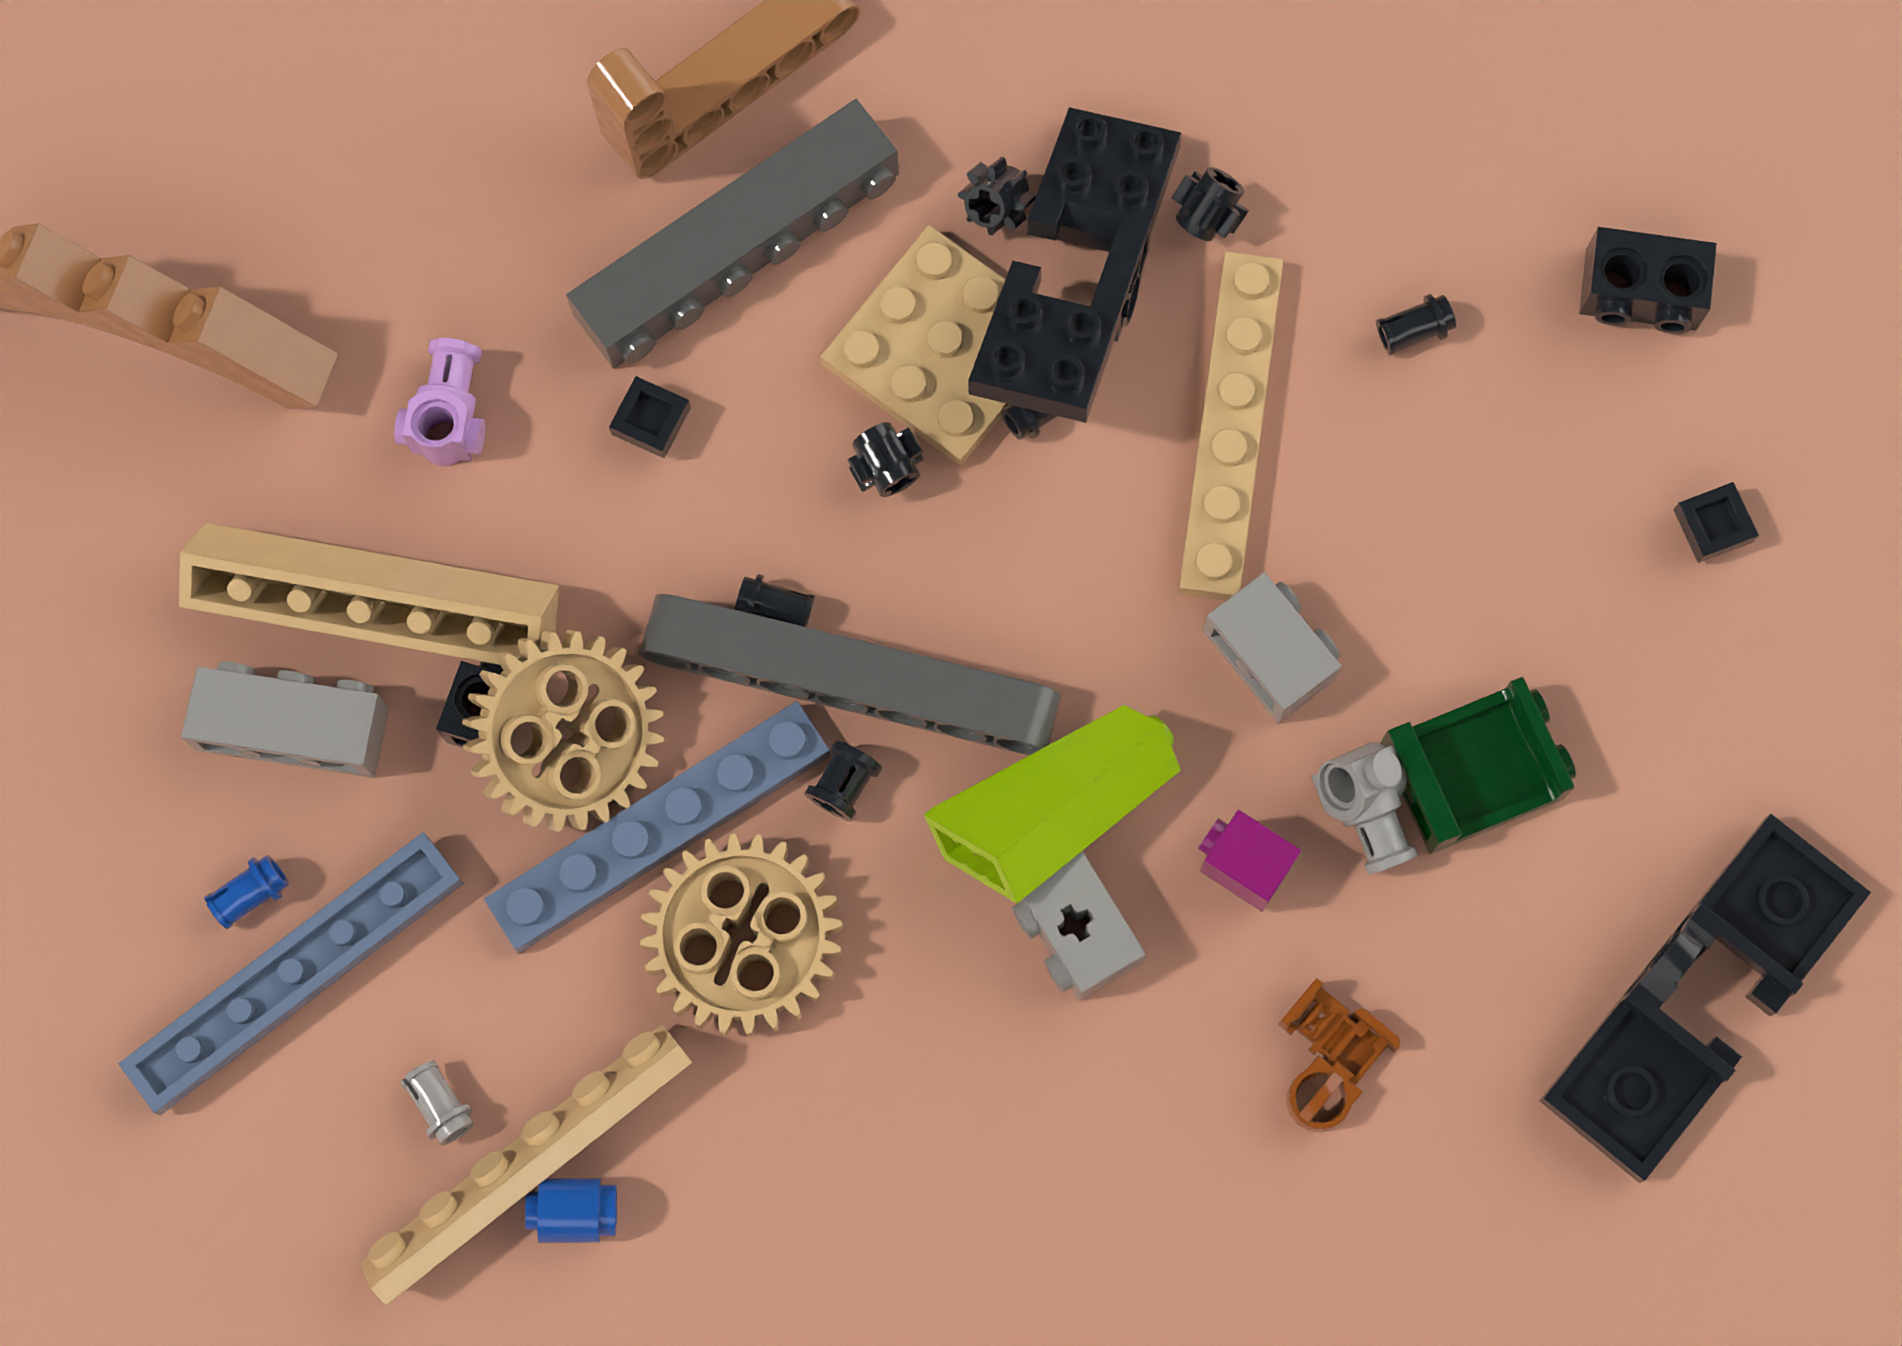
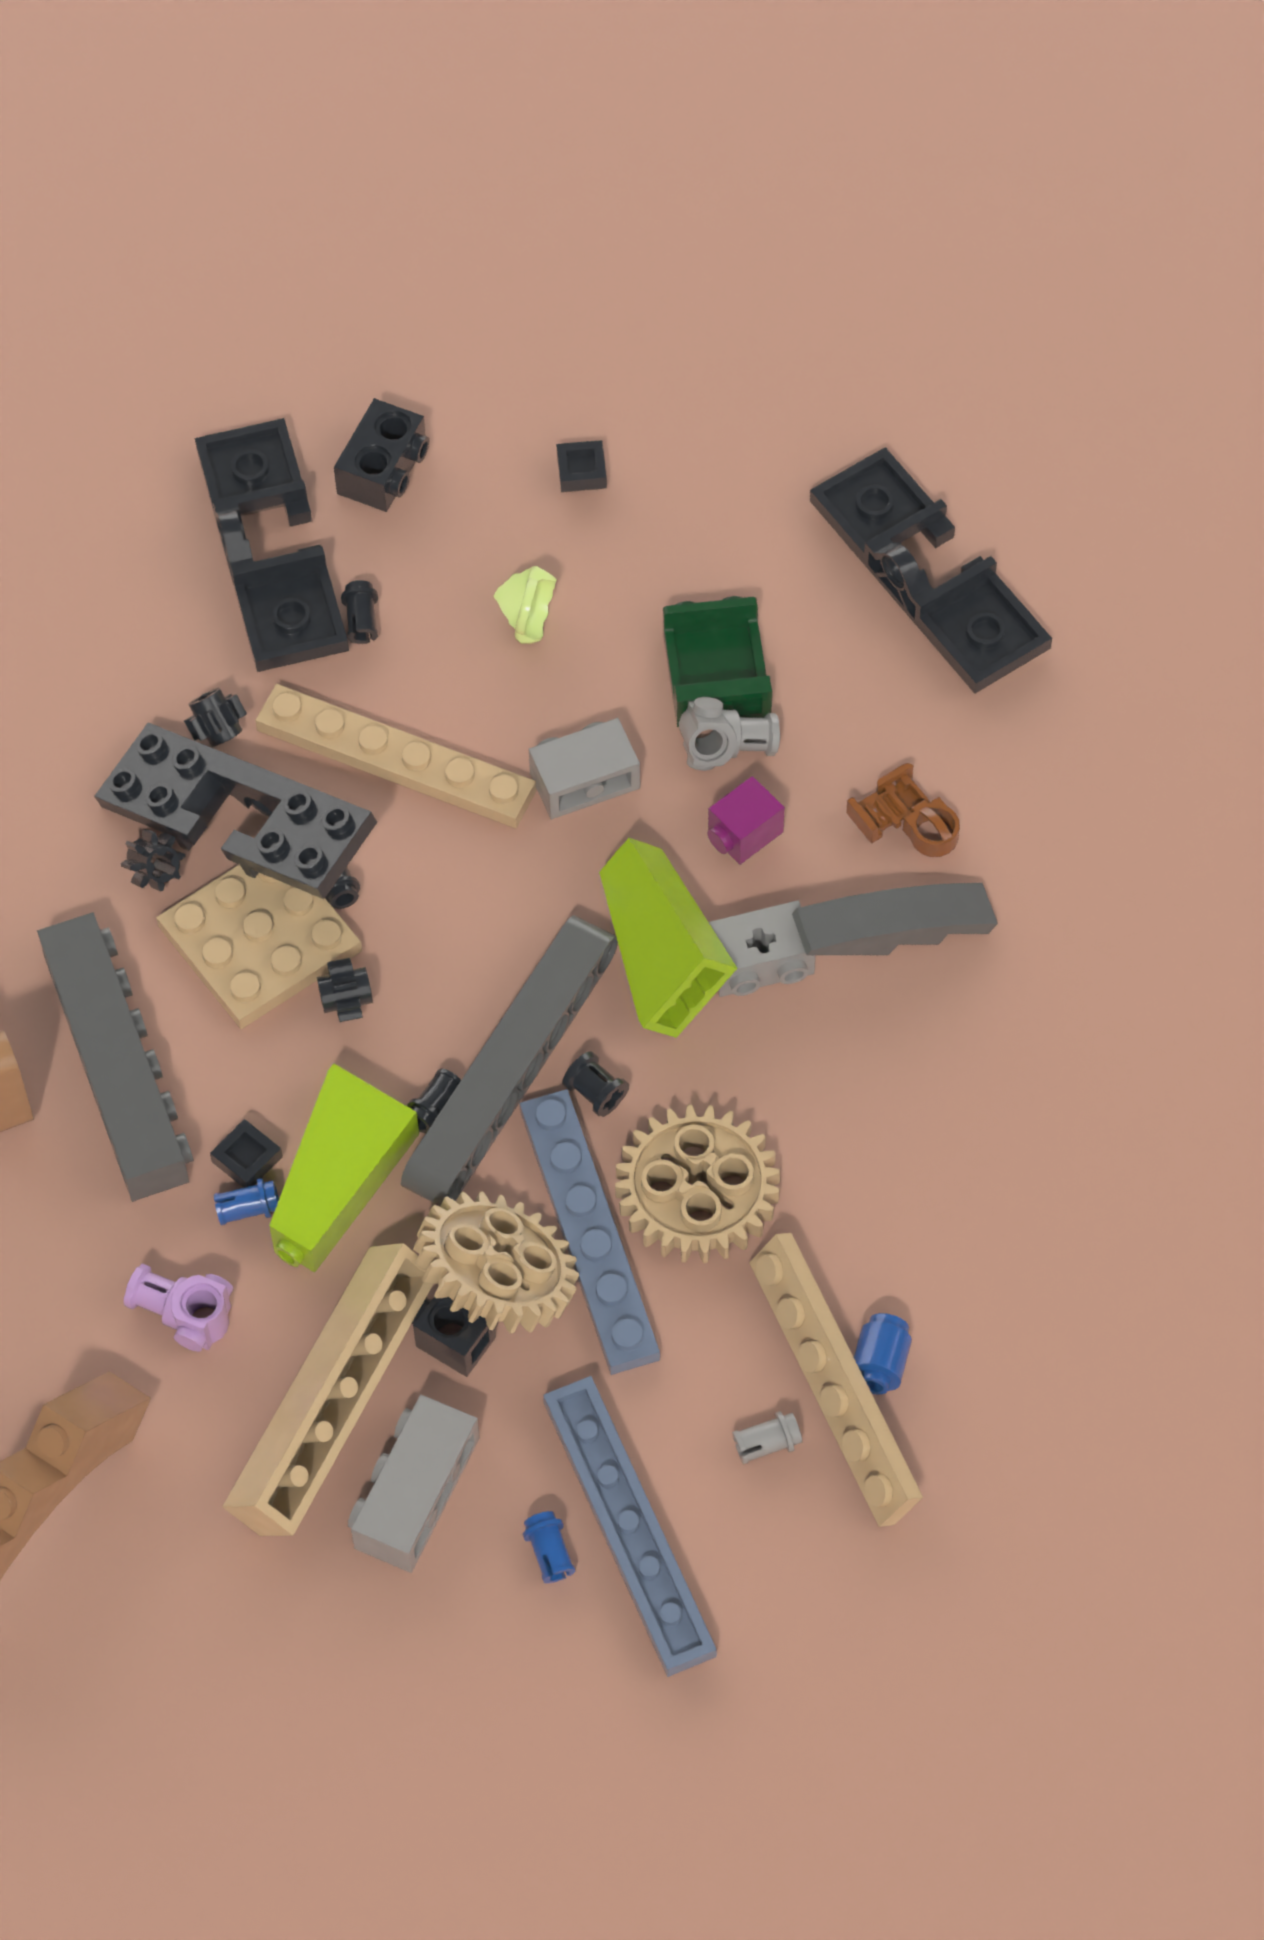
camera: 75 degrees left, 15 degrees down
(597, 447) = (247, 1202): none -> blue pin
(660, 521) = (339, 1166): none -> lime slope
(1161, 1080) = (894, 917): none -> dark grey slope
(1406, 237) = (284, 598): none -> black plate
(1489, 514) = (526, 601): none -> yellowish green piece

